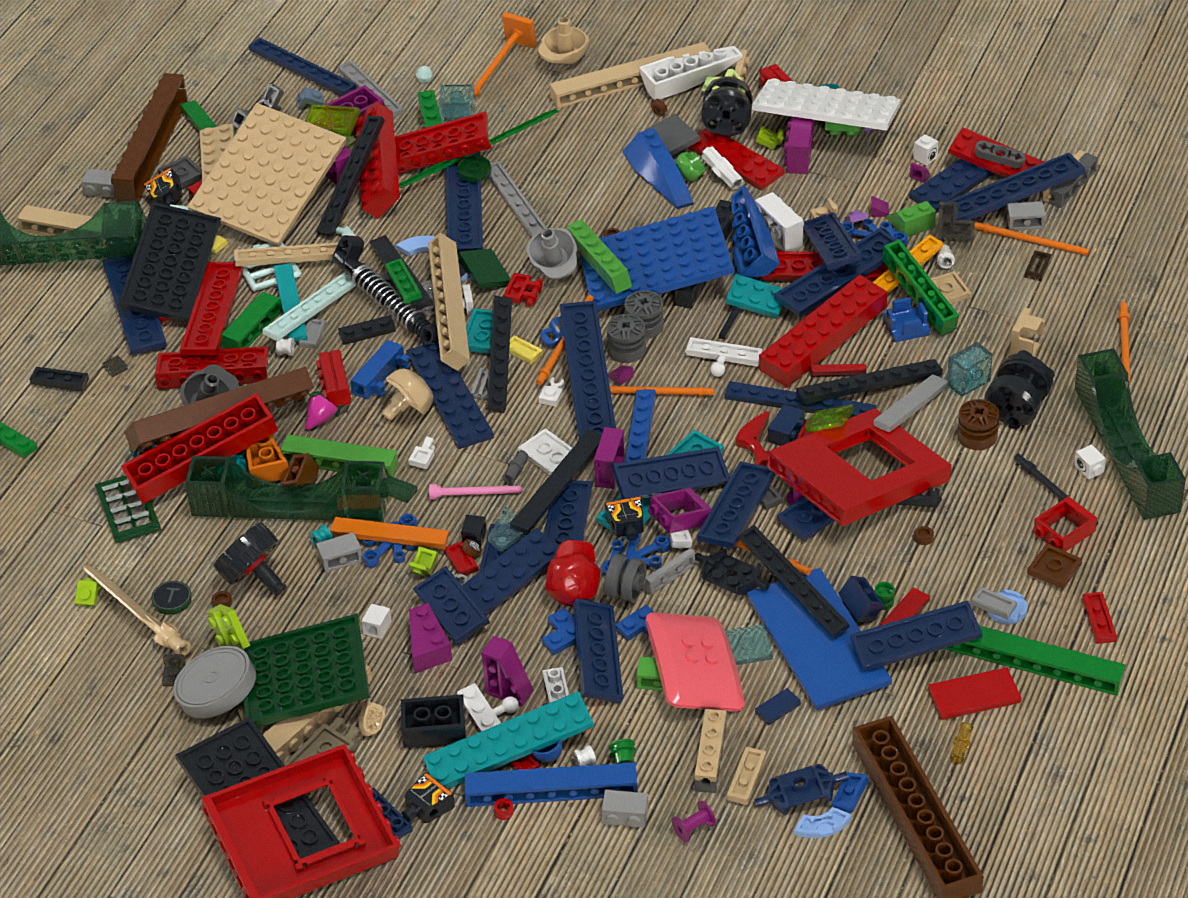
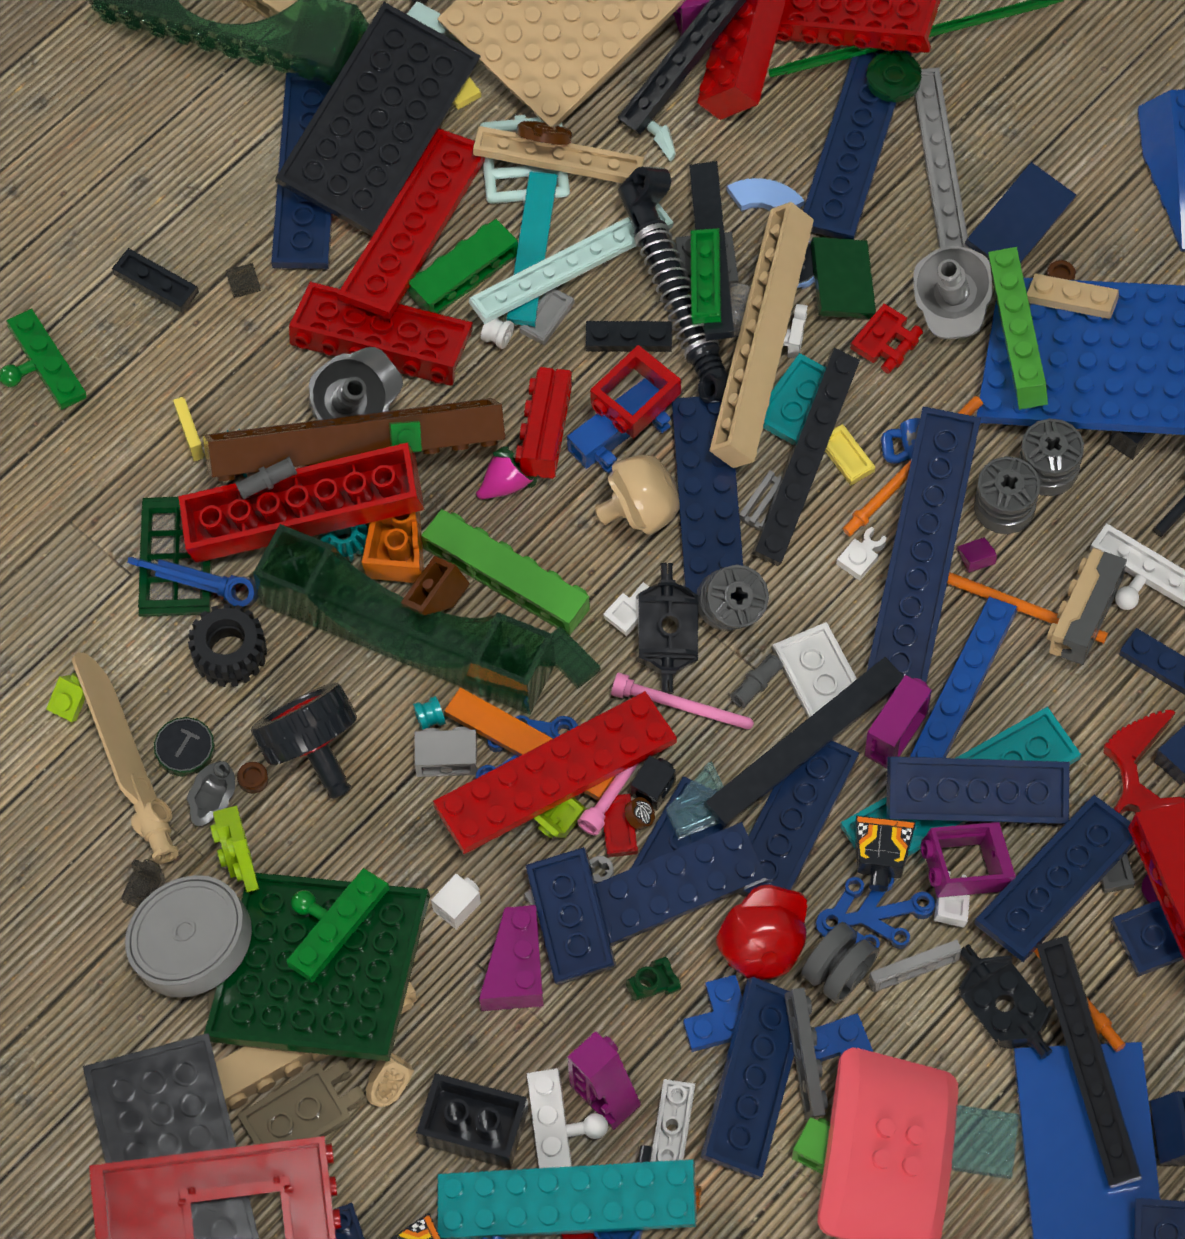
camera: 20 degrees right, 20 degrees up
(110, 442) = (189, 428): none -> light yellow tile
(164, 510) = (222, 586): none -> blue piece
(174, 435) = (266, 478): none -> dark grey pin
(179, 537) = (222, 624): none -> black tyre
(196, 612) = (210, 792): none -> dark grey arm
(250, 390) = (406, 432): none -> green plate
(277, 242) = (543, 133): none -> reddish brown tile
(306, 646) = (335, 924): none -> green plate
(388, 332) = (651, 369): none -> red window
(411, 538) = (554, 772): none -> red plate
(445, 555) = (593, 819): none -> bright pink piece
(451, 465) = (661, 650): none -> black plate
(484, 426) = (716, 603): none -> dark grey wheel
(514, 624) = (657, 977): none -> dark green plate
(579, 205) = (1022, 214): none -> dark blue tile
(622, 627) = (803, 1040): none -> dark grey plate
(625, 235) = (1073, 296): none -> tan plate
(695, 375) = (1087, 605): none -> piece

